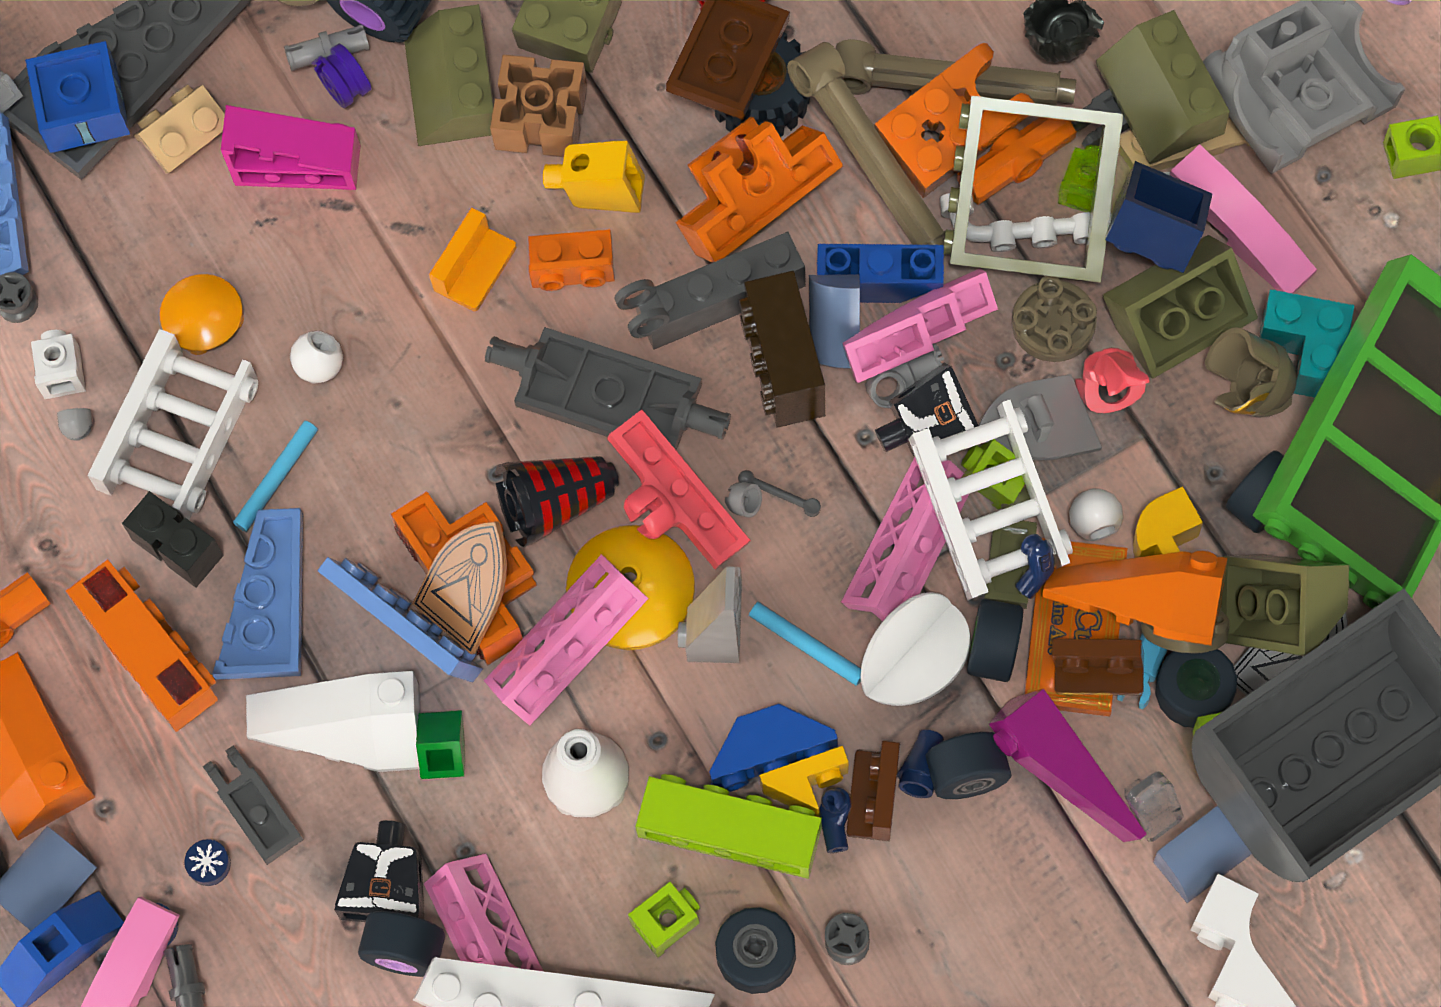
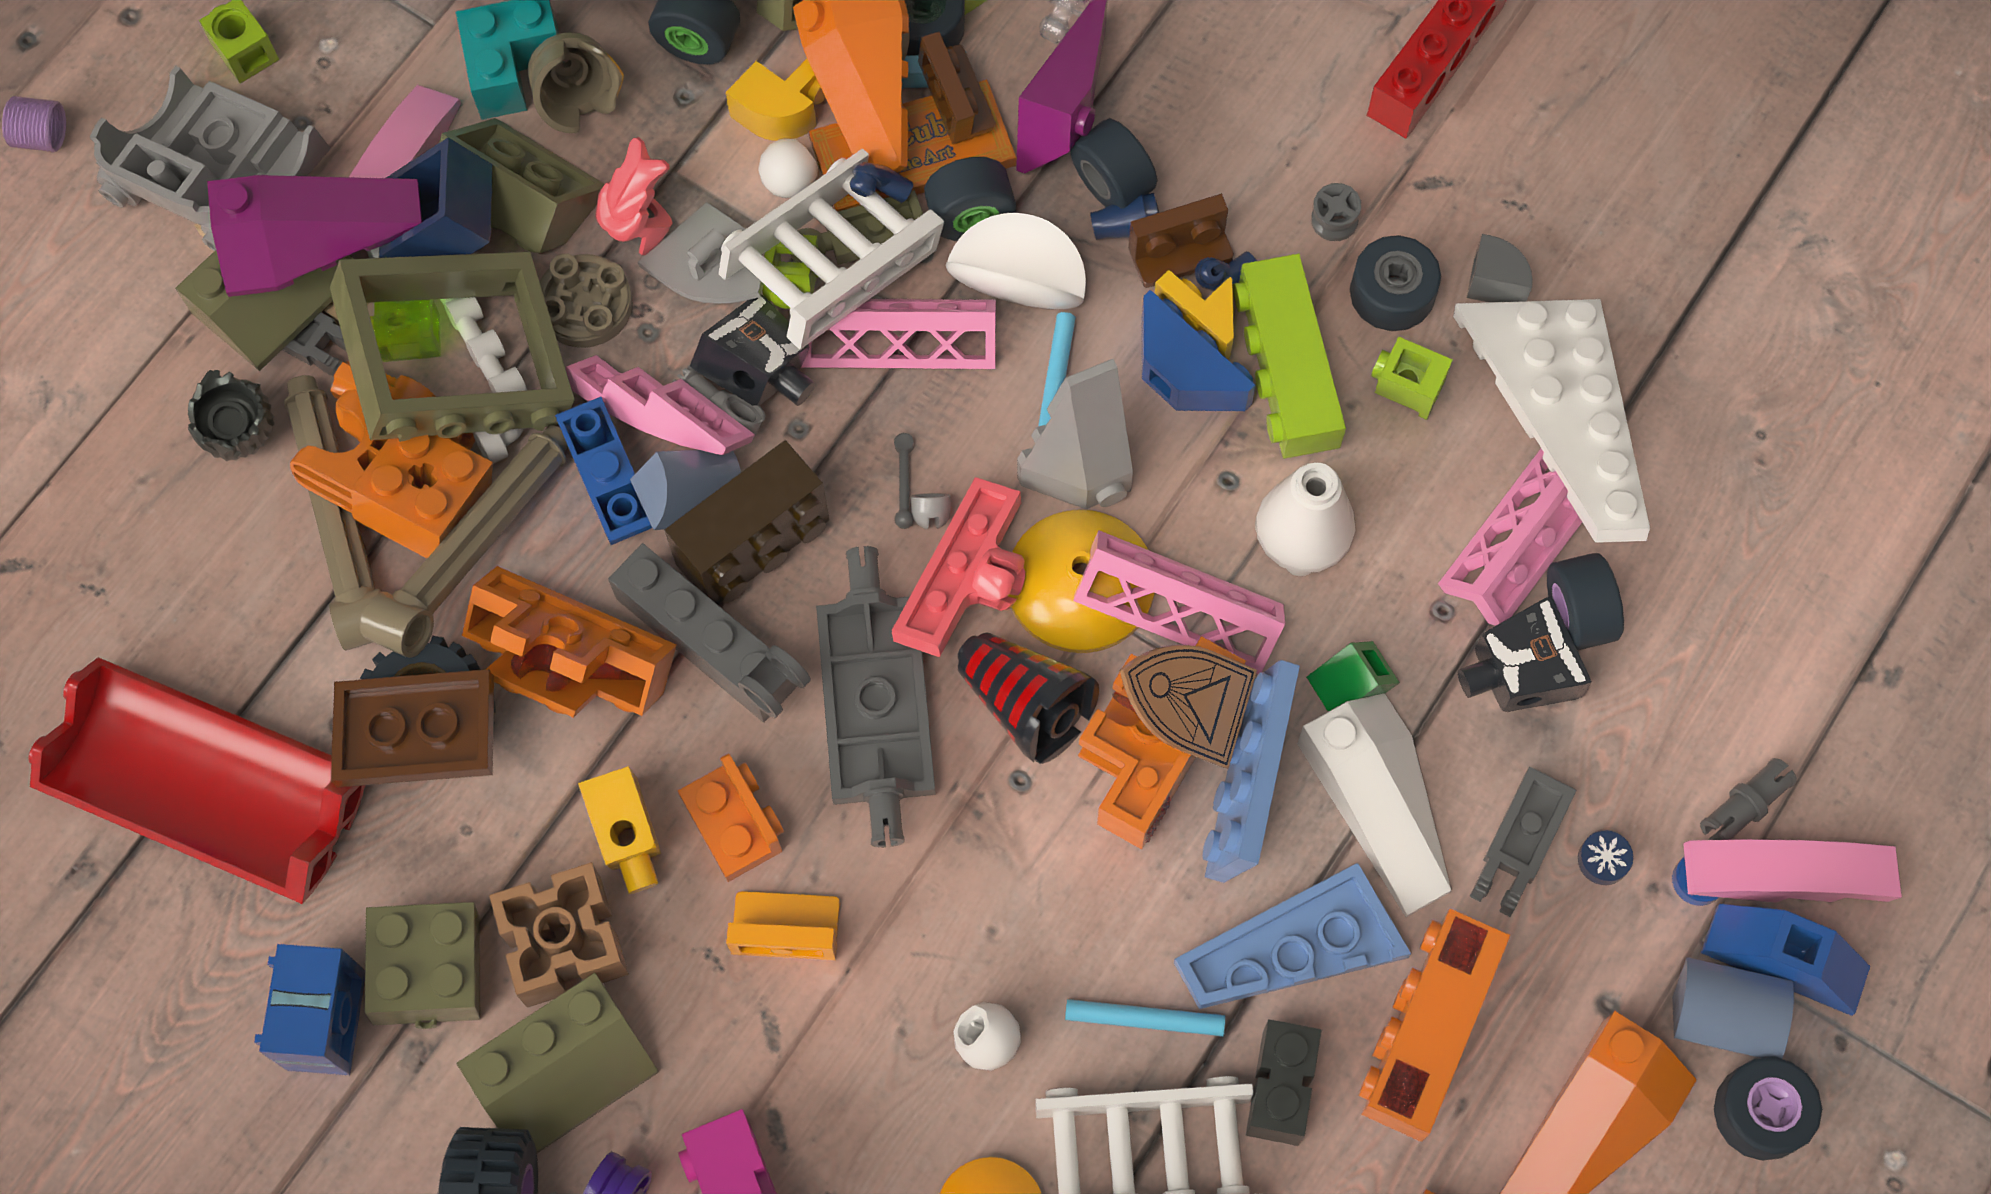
camera: 120 degrees left, 0 degrees up
(1174, 102) = (290, 225): none -> magenta wedge

